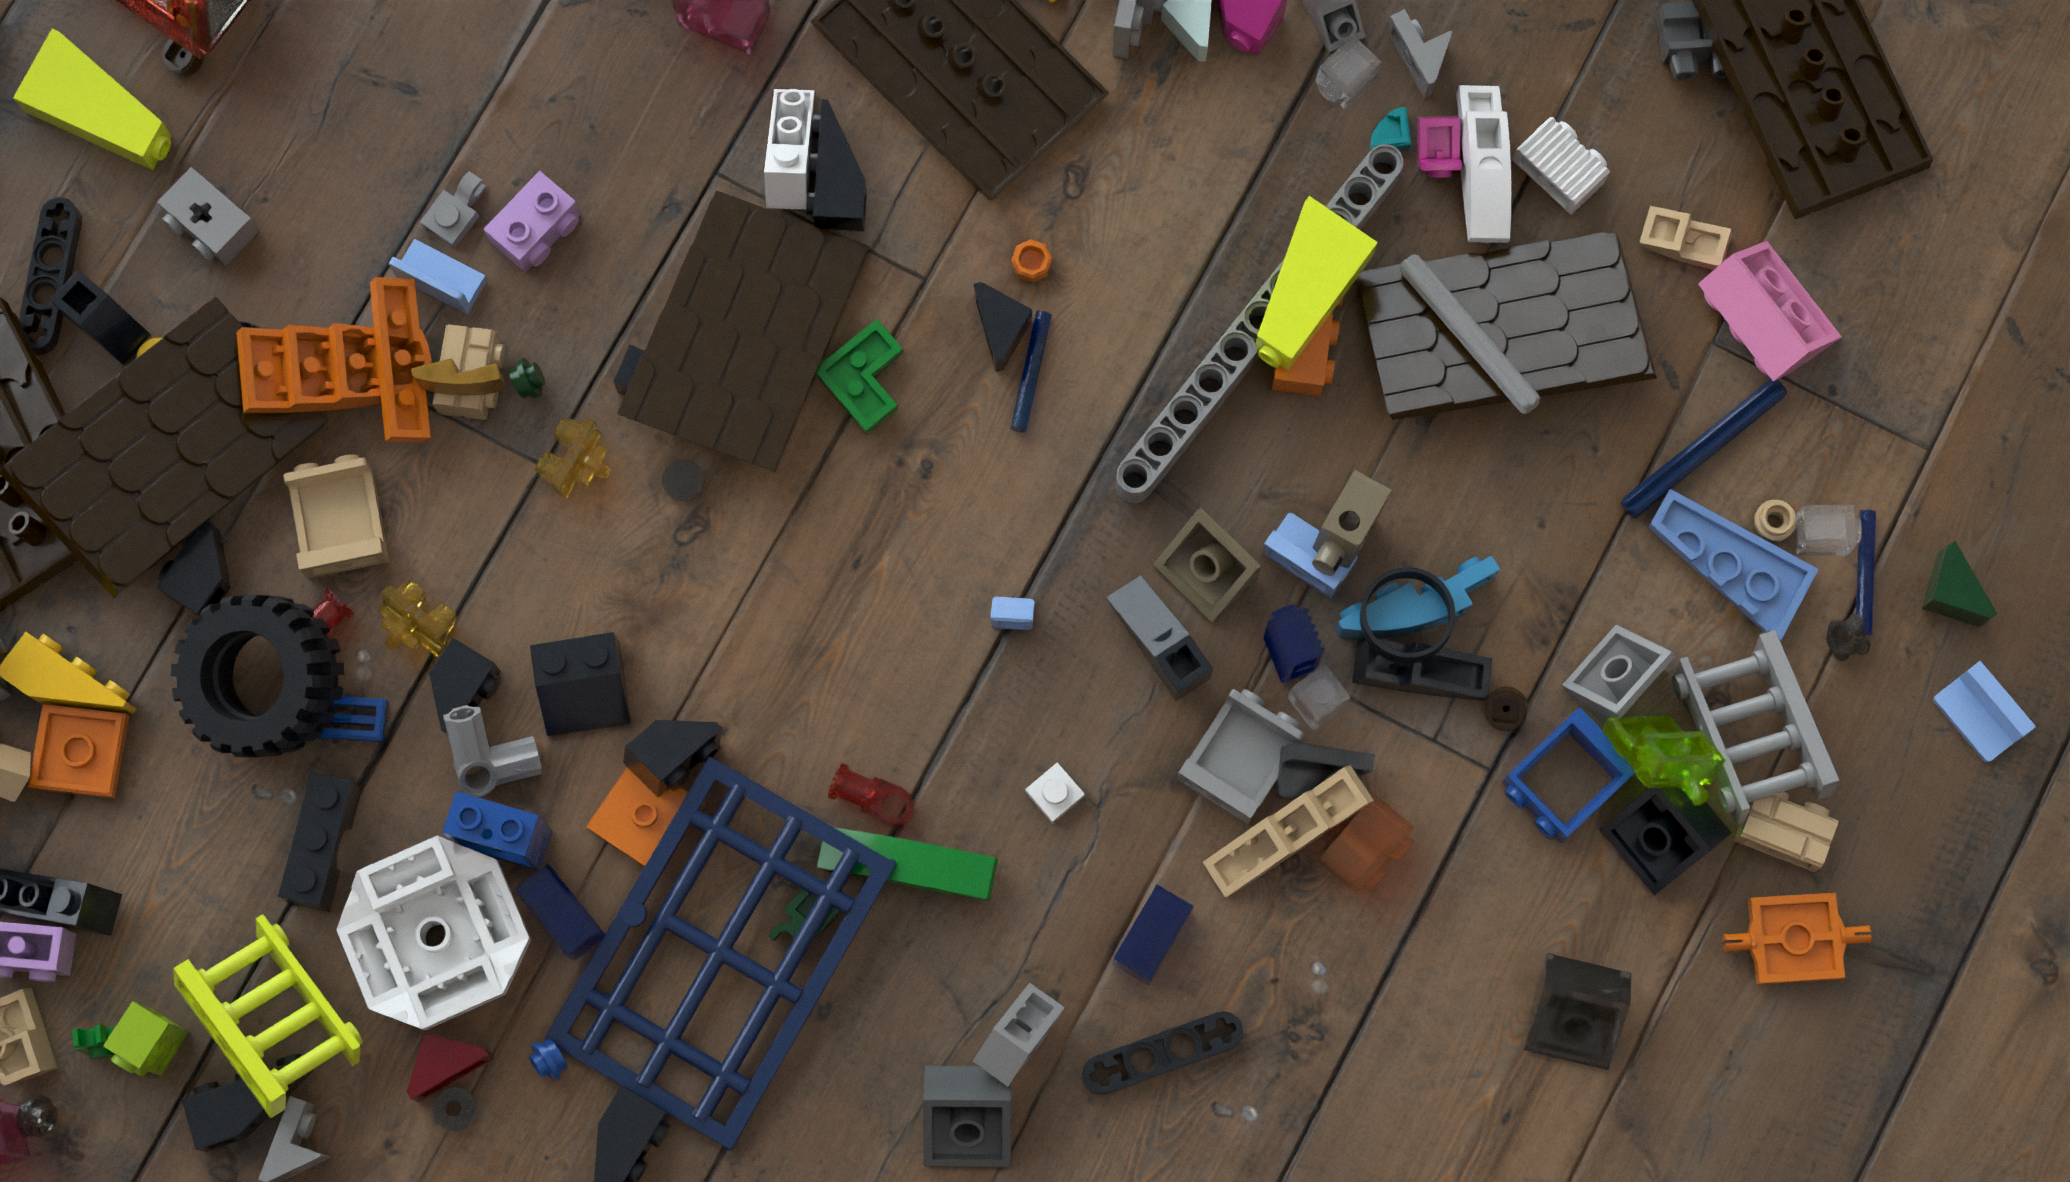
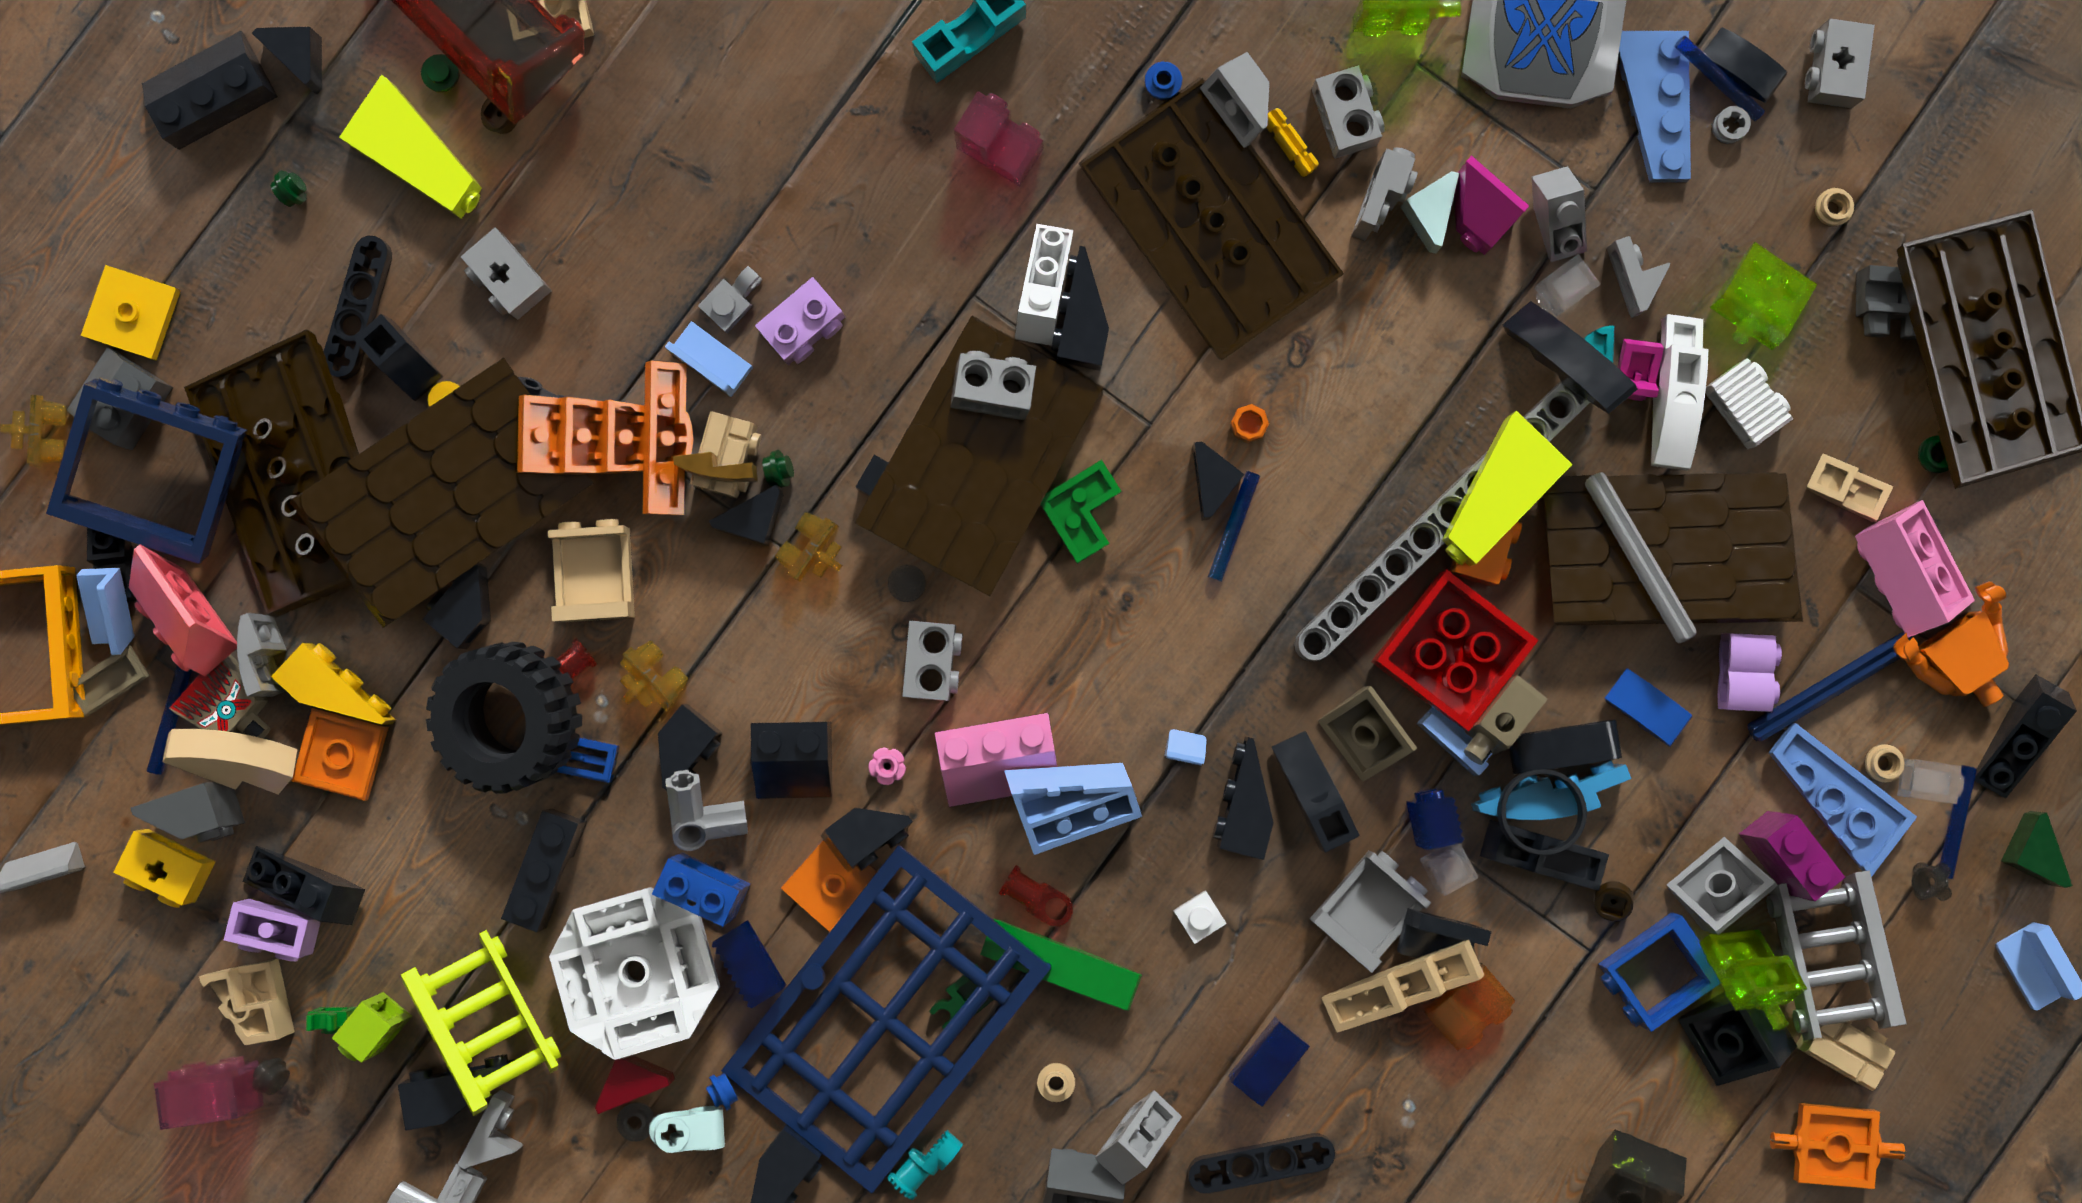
camera: 10 degrees right, 10 degrees up
(114, 22) = (439, 73): none -> dark green plate
(505, 434) = (752, 518): none -> black slope
(522, 1106) = (696, 1129): none -> light aqua piece
(688, 689) = (877, 770): none -> bright pink plate
(711, 558) = (920, 660): none -> light grey brick
(748, 264) = (992, 396): none -> light grey brick
(779, 1113) = (919, 1166): none -> teal connector
(807, 651) = (977, 755): none -> bright pink slope
(893, 682) = (1071, 802): none -> light blue wedge
(920, 1010) = (1059, 1070): none -> tan plate
(1091, 668) = (1248, 814): none -> black slope
(1286, 460) = (1454, 650): none -> red slope
(1361, 137) = (1571, 357): none -> black slope
(1427, 547) = (1566, 746): none -> black beam
(1510, 496) = (1648, 707): none -> blue slope
(1558, 55) = (1763, 297): none -> clear neon green plate
(1609, 443) = (1748, 672): none -> lavender brick
(1686, 621) = (1792, 855): none -> magenta brick
(1762, 198) = (1925, 458): none -> dark green plate
(1838, 390) = (1965, 653): none -> orange torso
(1918, 469) = (2024, 735): none -> black slope

